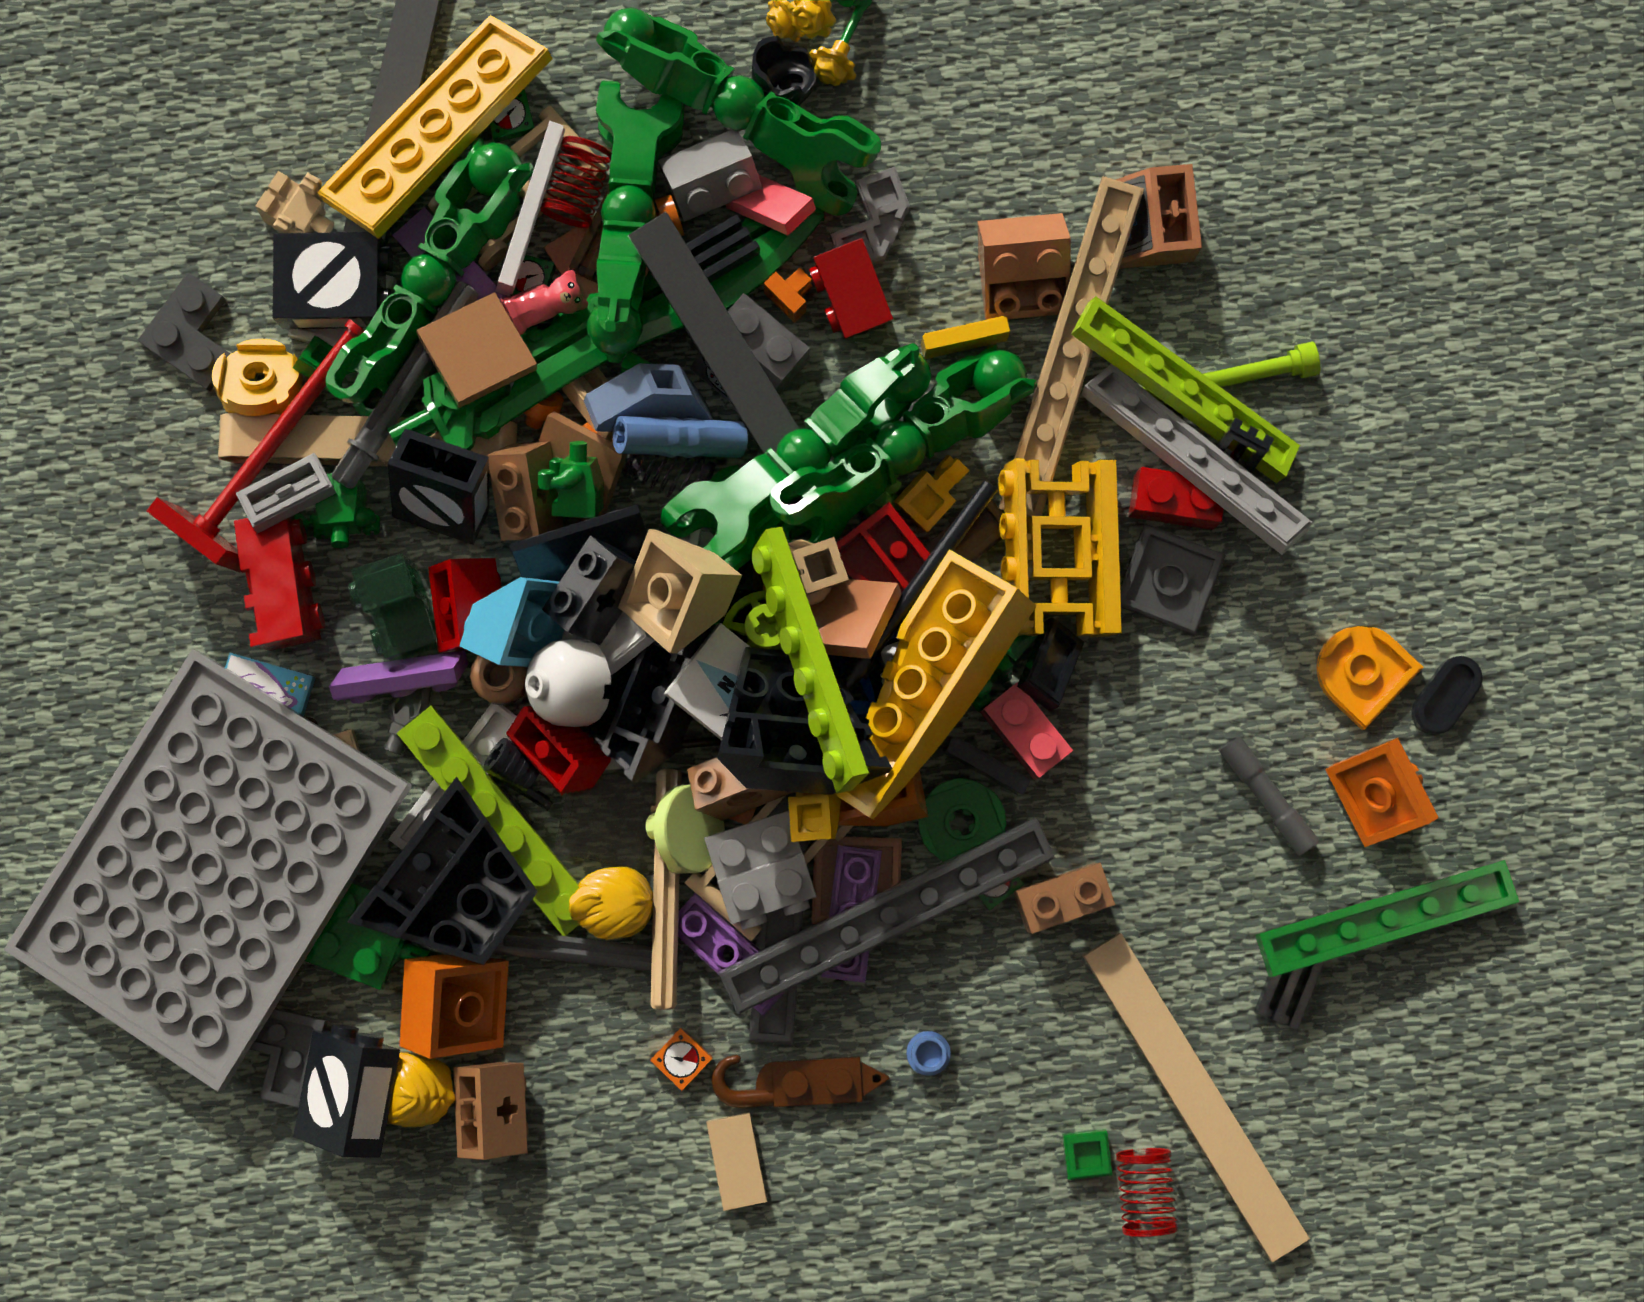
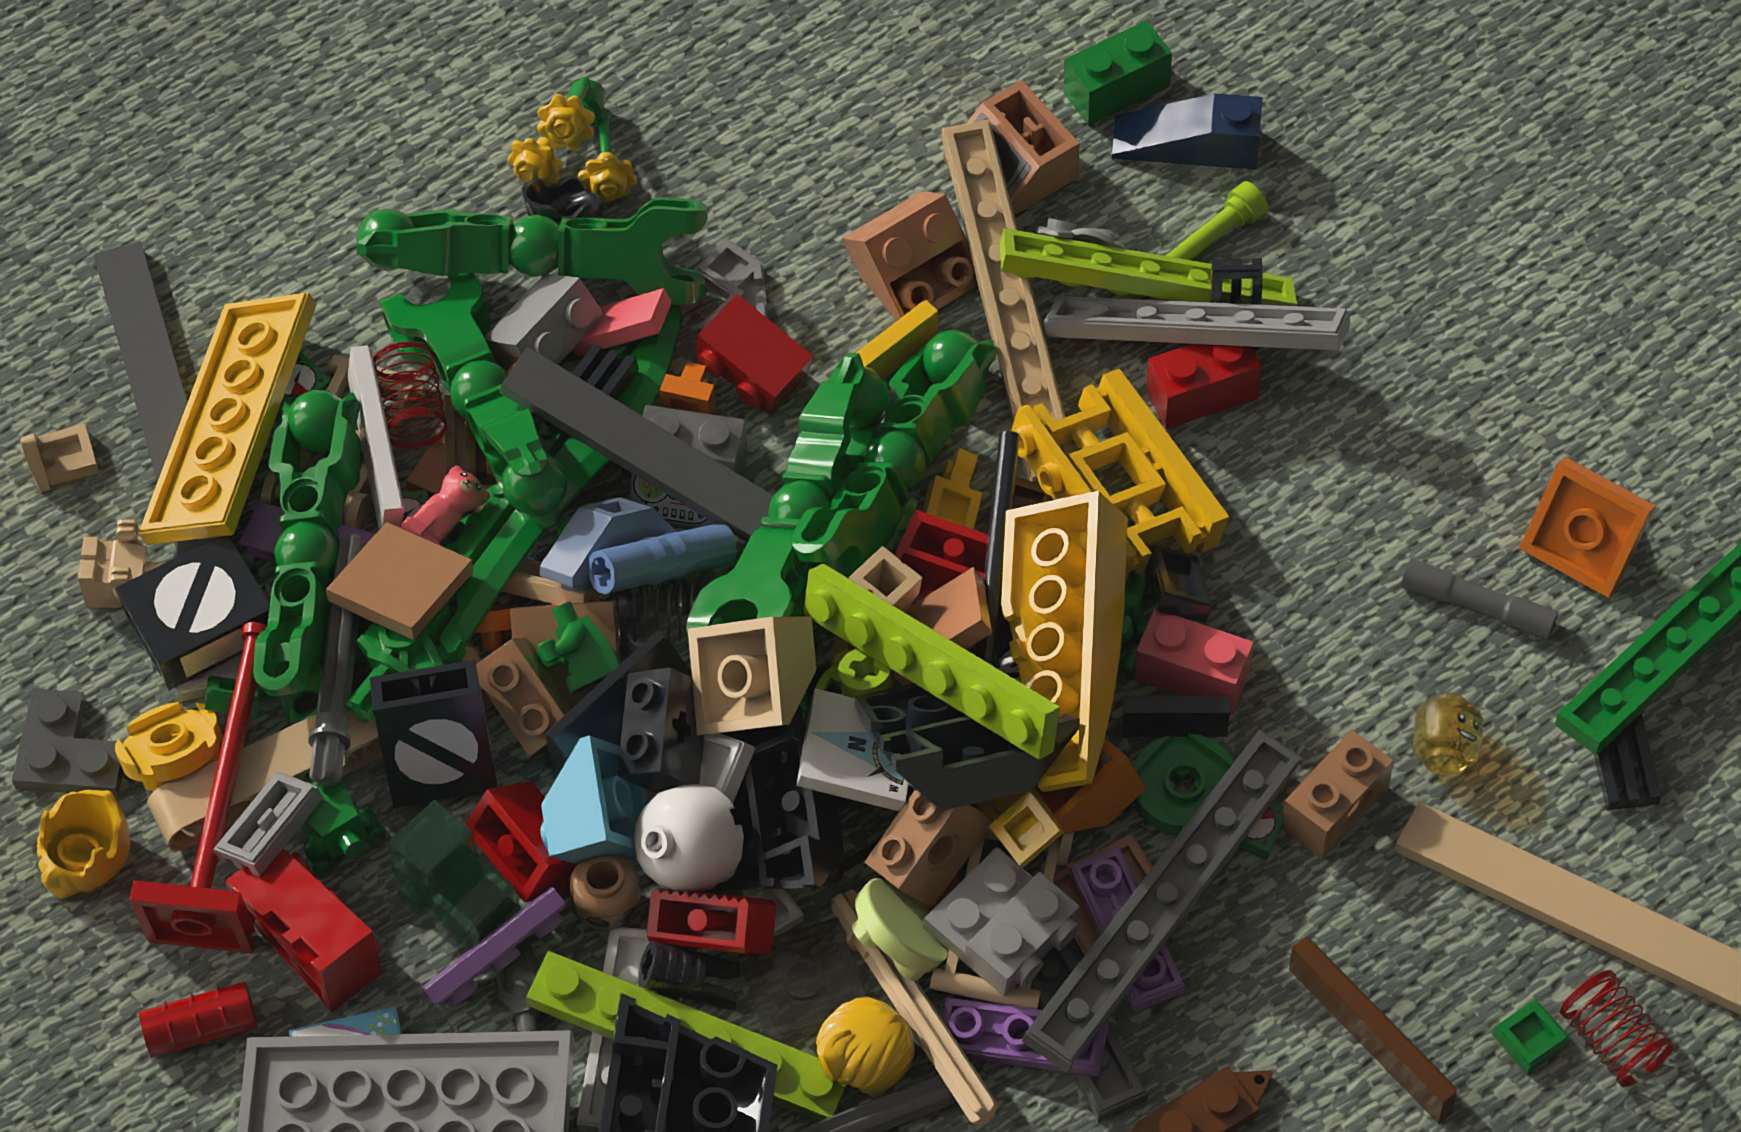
camera: 25 degrees left, 25 degrees down
(157, 424) = (82, 842): none -> yellow hair
(170, 609) = (198, 1019): none -> red axle
(303, 79) = (59, 456): none -> tan tile
(928, 1053) = (1297, 1025): medium blue plate -> none
(977, 1091) = (1373, 1029): none -> reddish brown tile
(1145, 312) = (1068, 230): none -> light grey plate
(1170, 579) = (1247, 458): dark grey tile -> none
(1173, 896) = (1447, 734): none -> clear yellow head
(1277, 188) = (1117, 72): none -> green brick
(1301, 273) = (1193, 131): none -> dark blue slope
(1364, 672) = (1495, 443): light orange tile -> none
(1447, 695) = (1591, 422): black tile -> none

